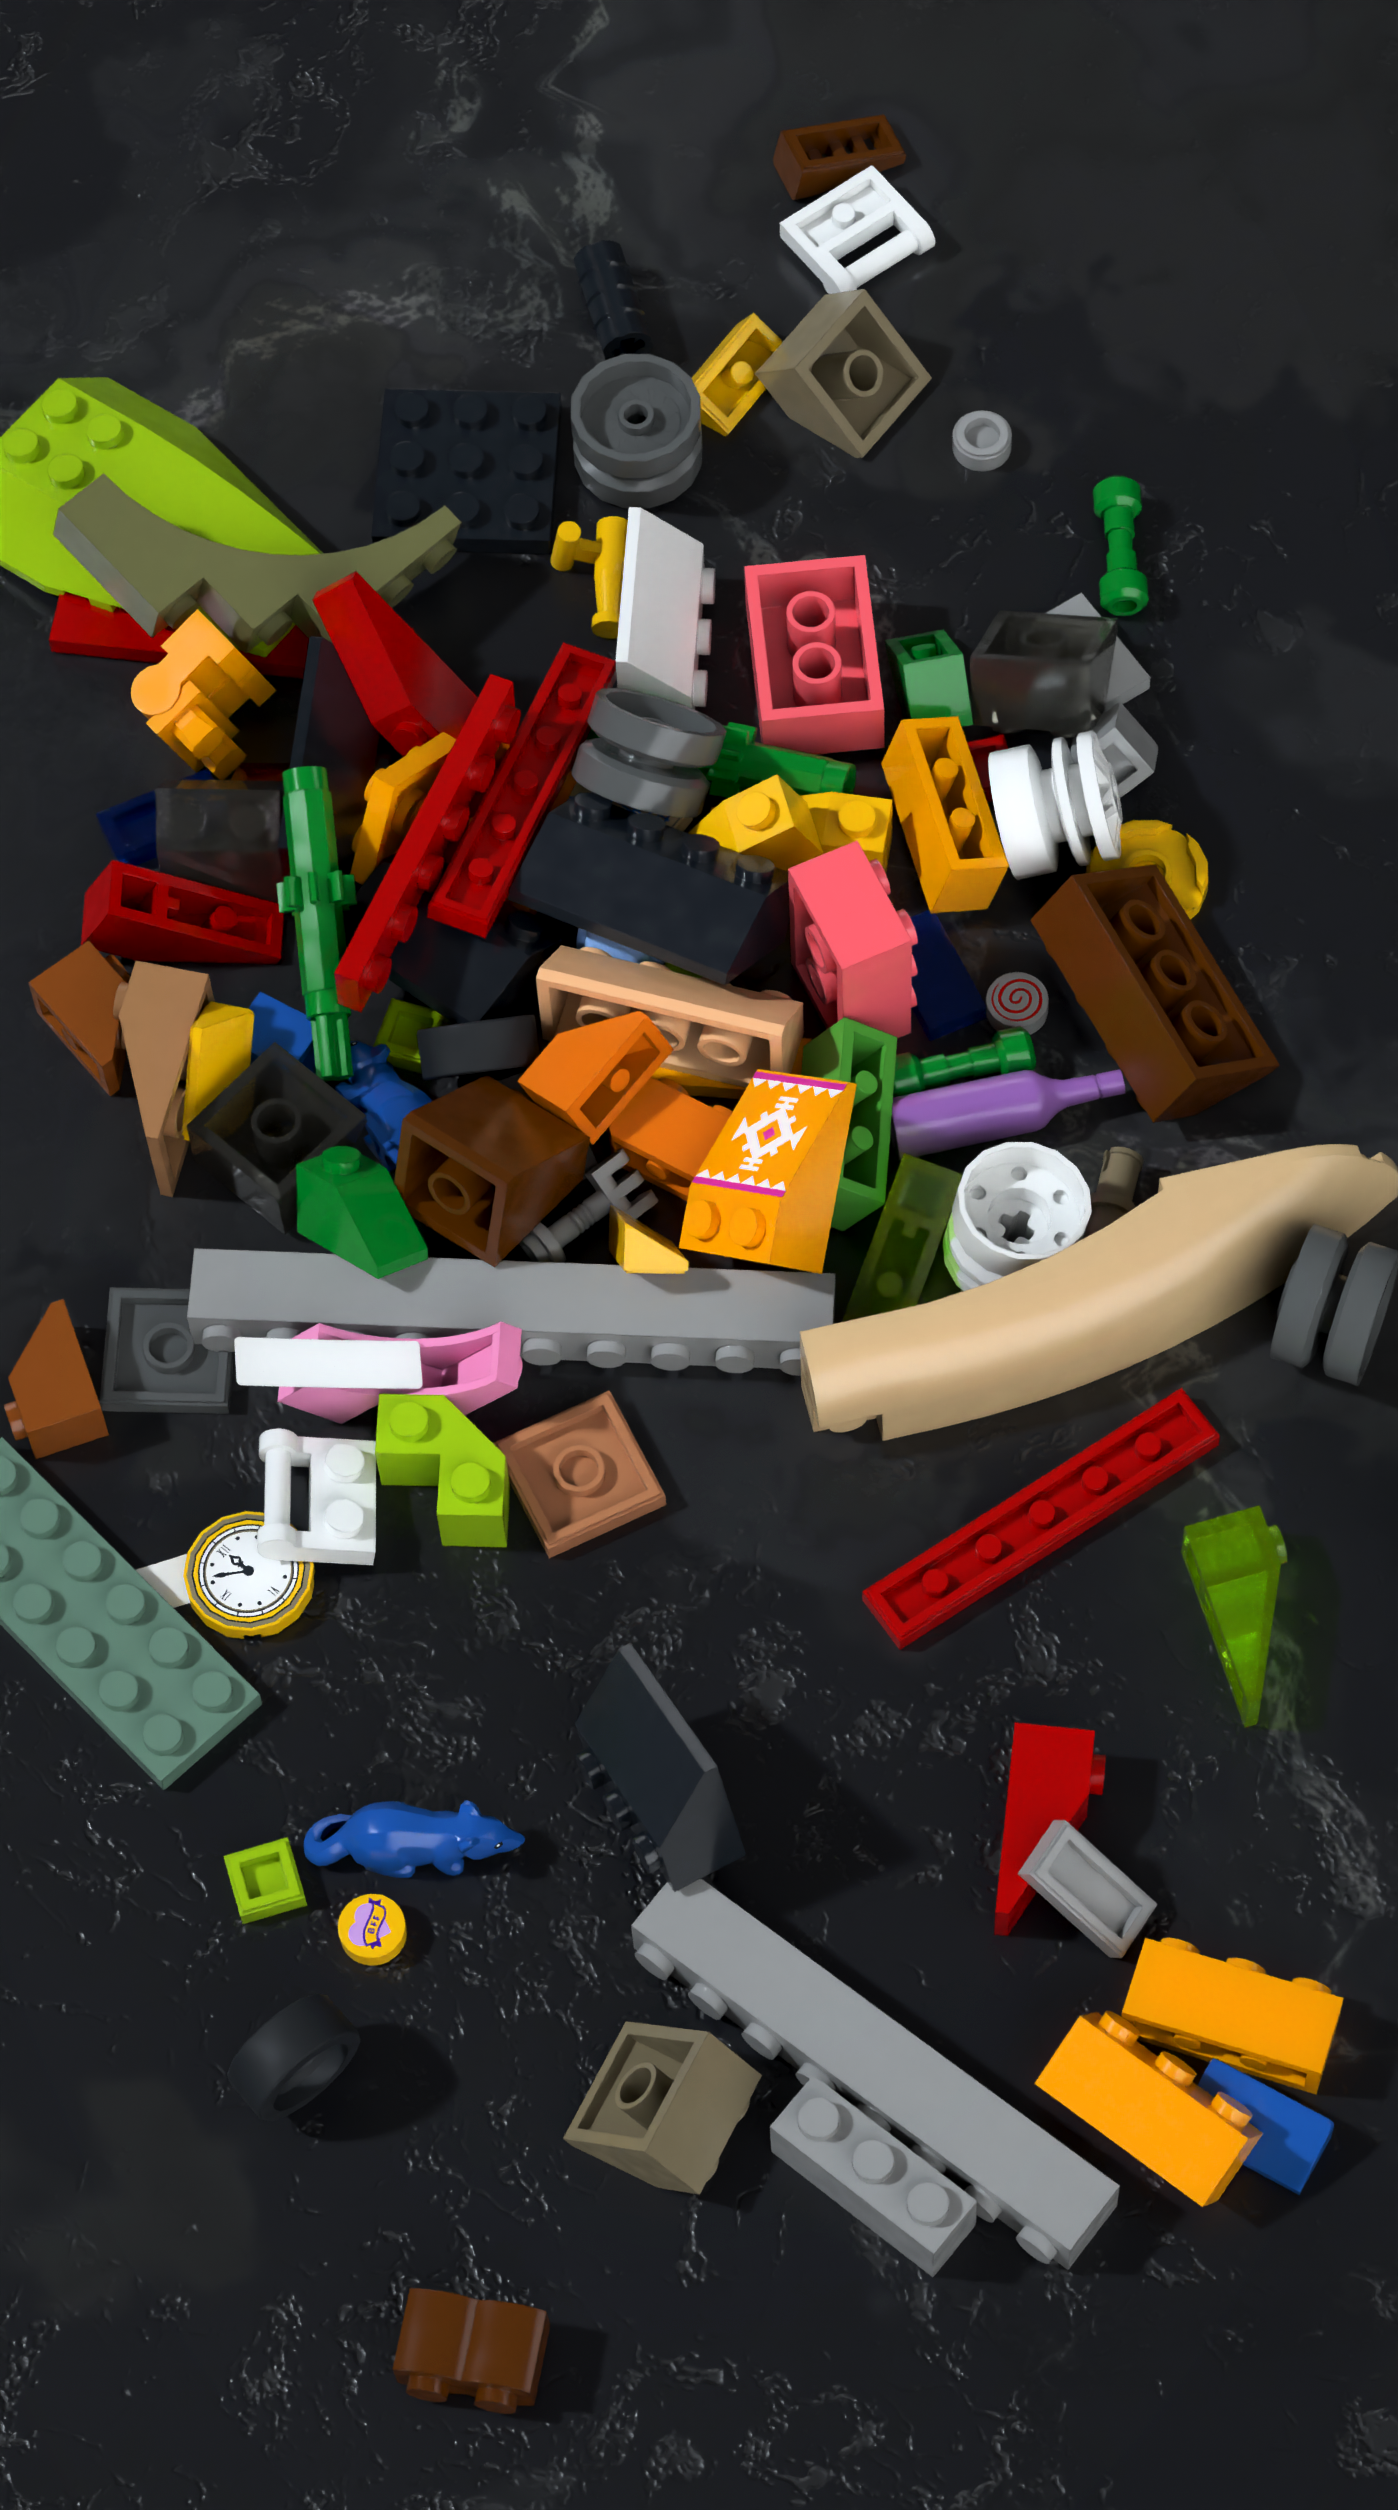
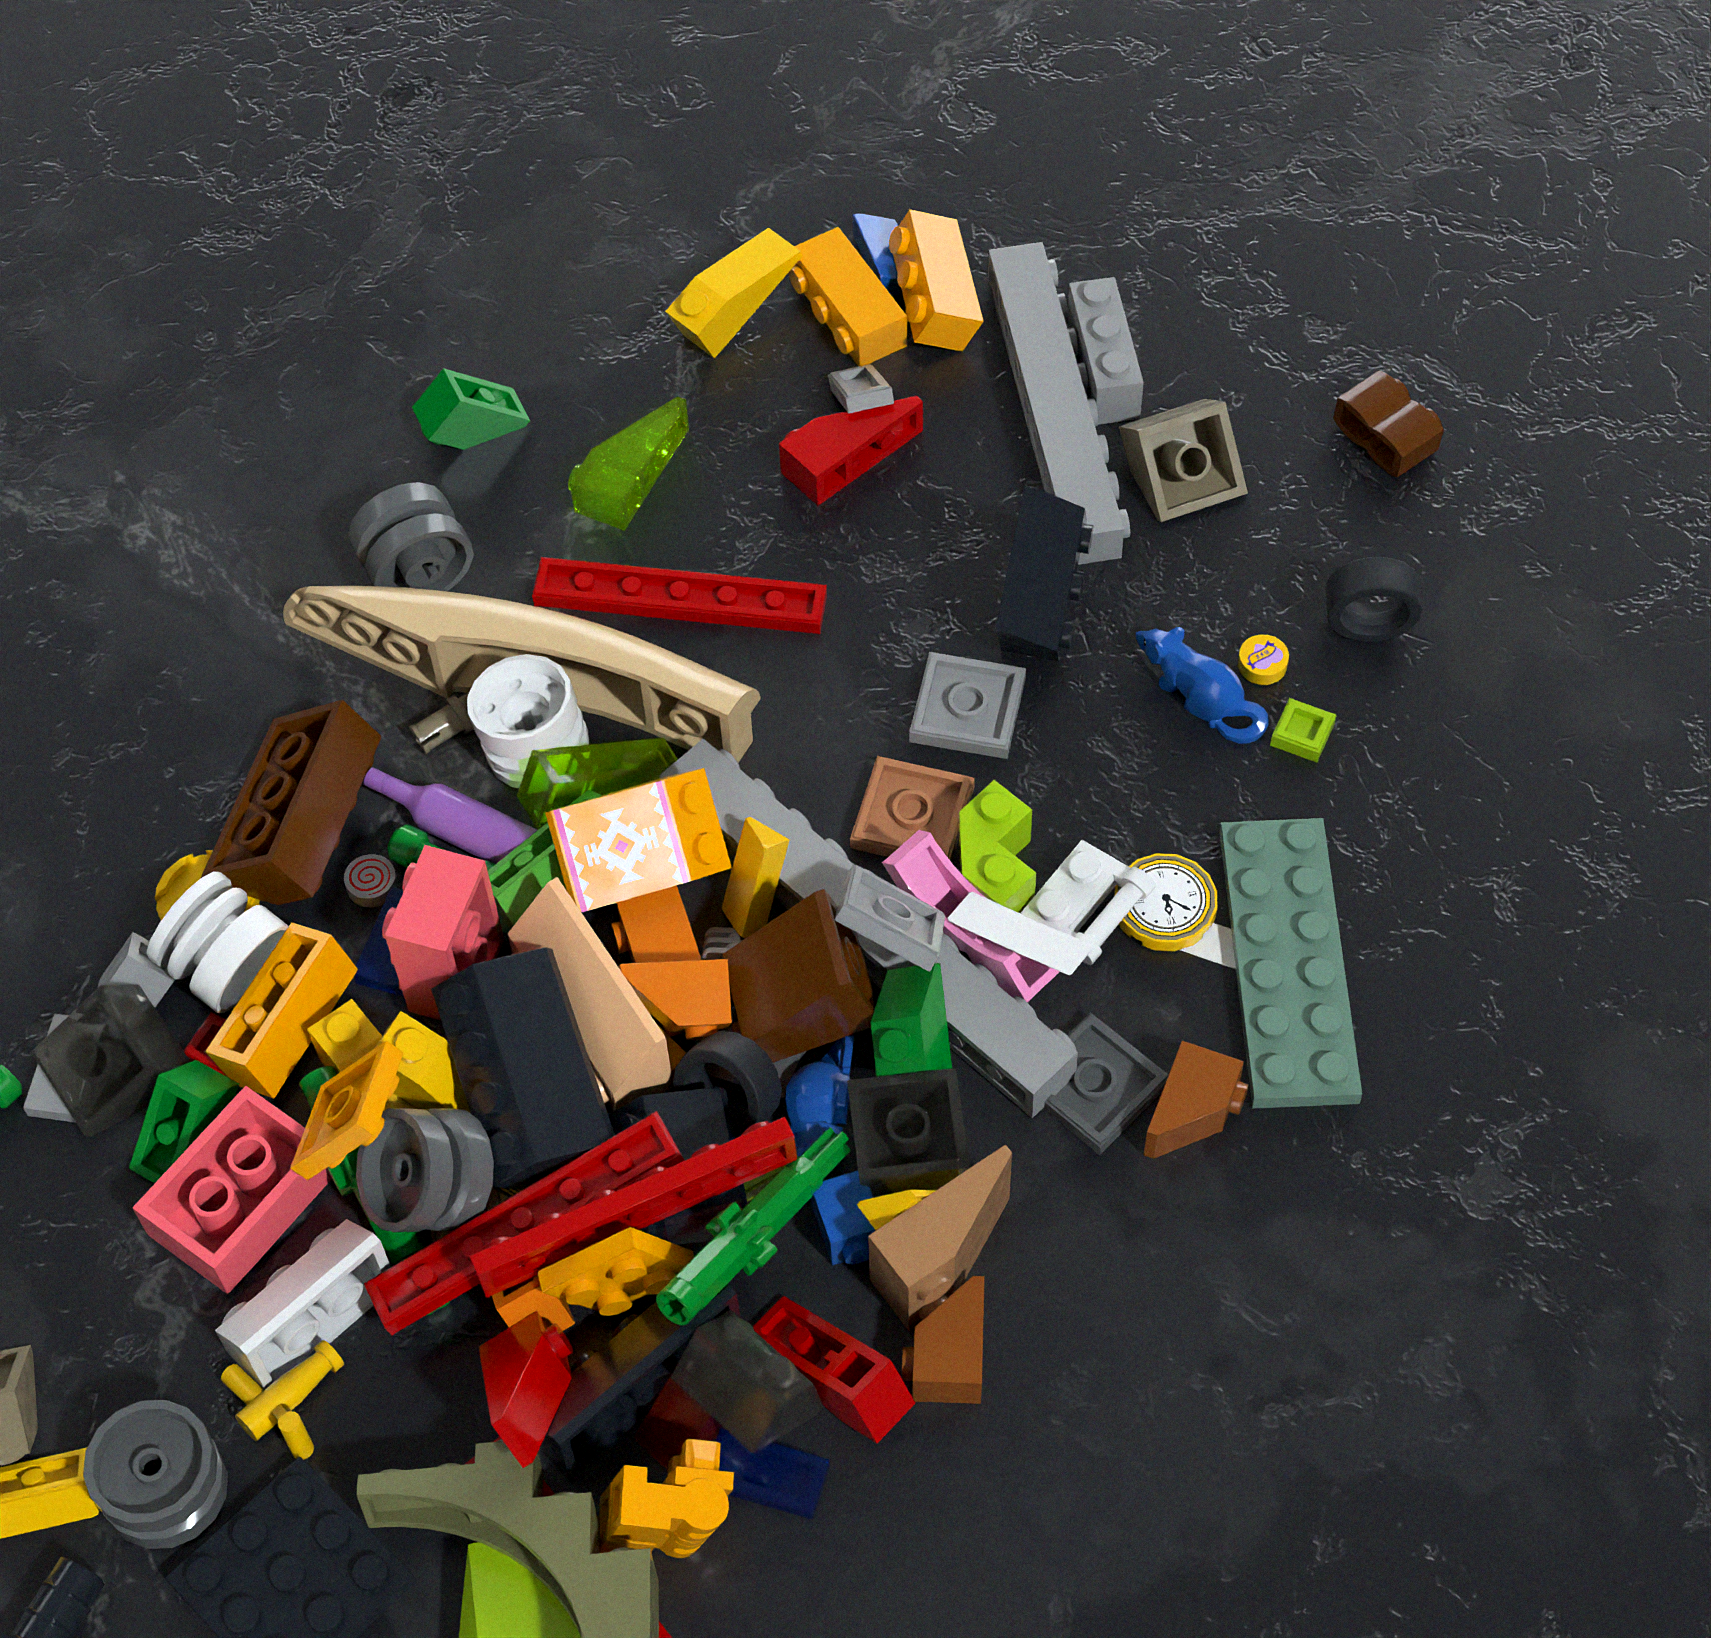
camera: 140 degrees left, 5 degrees down
(447, 1254) = (891, 917): none -> light grey tile
(636, 1606) = (967, 705): none -> light grey tile
(748, 720) = (348, 1111): none -> light orange plate
(1350, 1891) = (732, 290): none -> yellow slope

